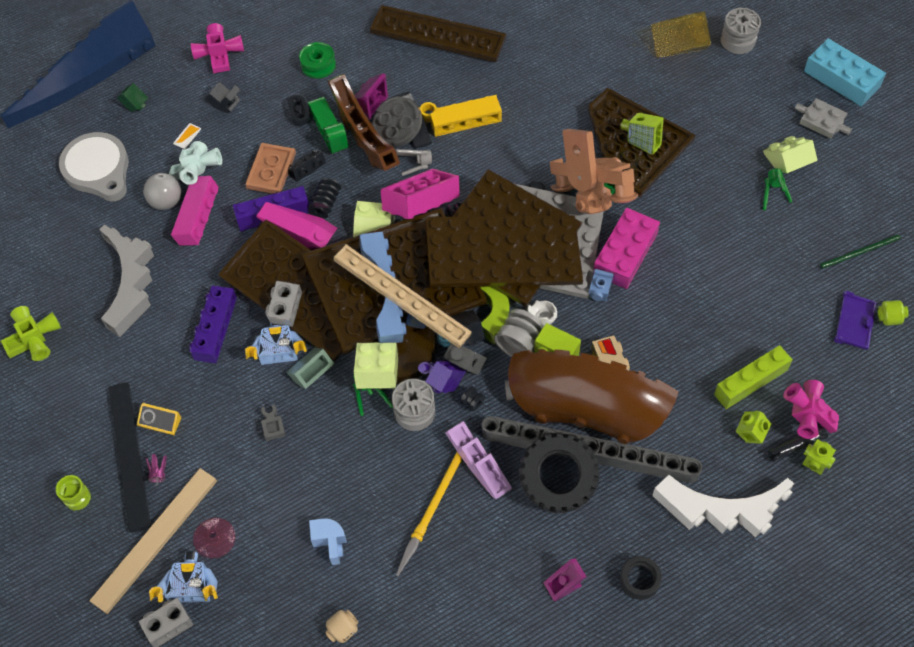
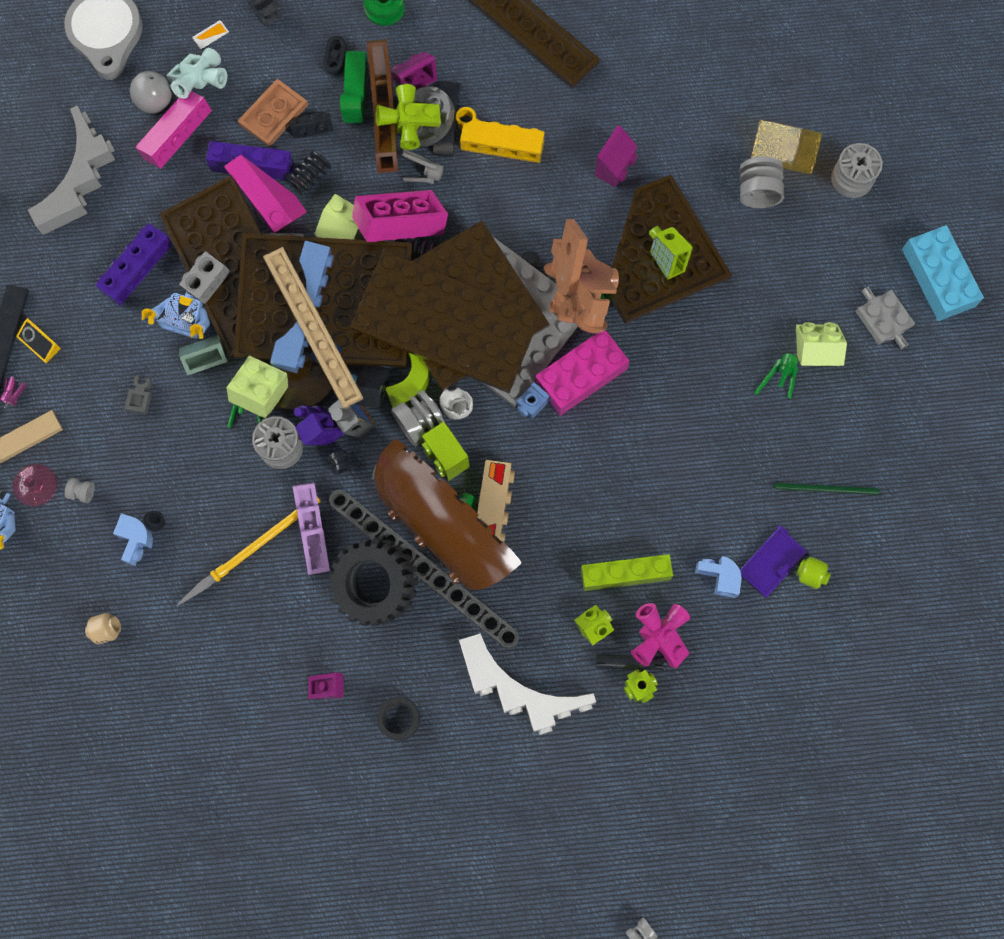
camera: 25 degrees right, 15 degrees up
(259, 521) = (79, 490): none -> light grey wheel
(339, 515) = (154, 521): none -> black plate
(386, 122) = (408, 116): none -> lime brick
(561, 92) = (616, 157): none -> magenta slope
(678, 64) = (761, 182): none -> light grey wheel
(829, 343) = (727, 573): none -> light blue brick

